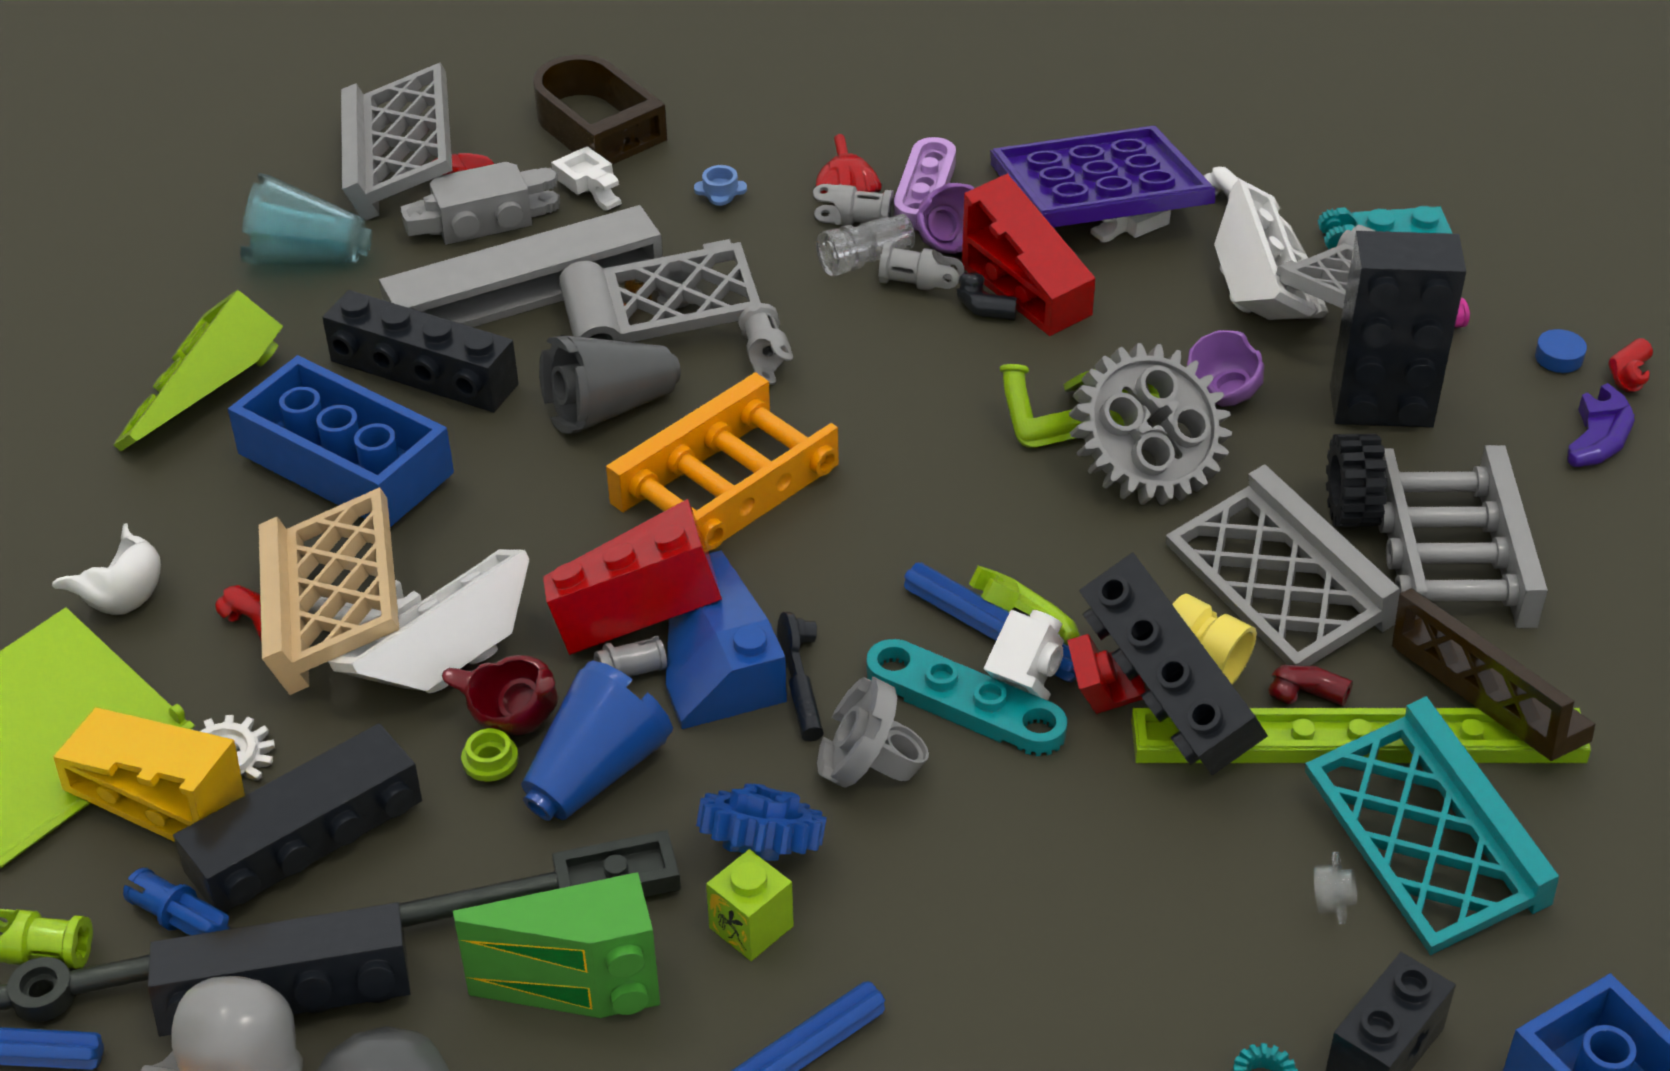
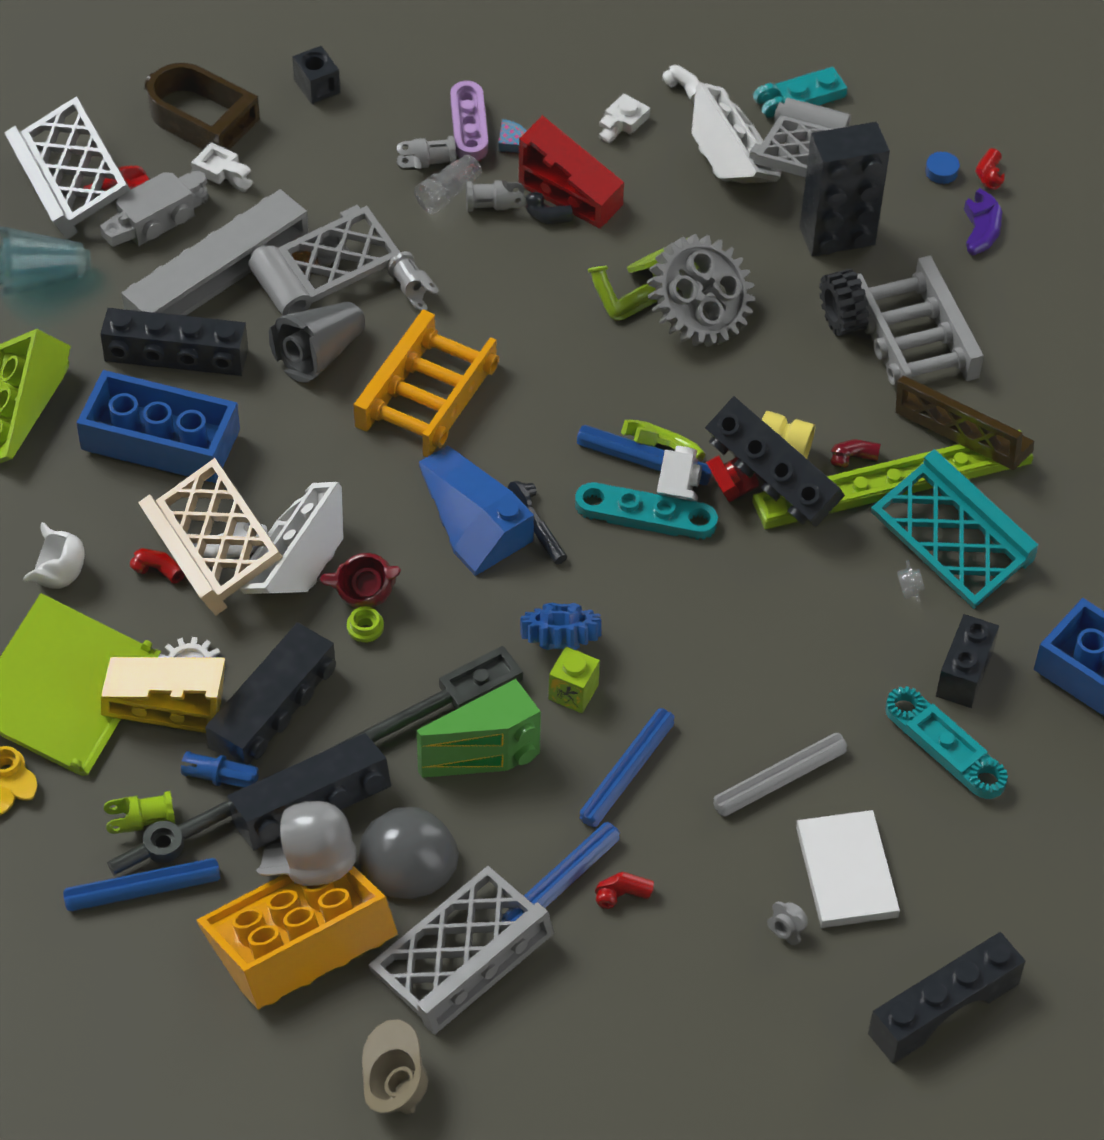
camera: 20 degrees left, 10 degrees up
(592, 741) = (433, 599): blue cone -> none
(633, 581) = (411, 483): red wedge -> none
(634, 657) = (424, 538): light grey pin -> none
(720, 185) = (321, 154): medium blue plate -> none
(754, 100) = (316, 74): none -> black brick
(848, 170) = (408, 124): red piece -> none
(870, 737) = (601, 554): light grey tile -> none
(942, 218) = (501, 151): medium lavender hair -> none
(1104, 175) = (594, 90): dark purple tile -> none
(1231, 362) = (734, 229): medium lavender hair -> none
(1321, 552) = (837, 359): light grey fence -> none

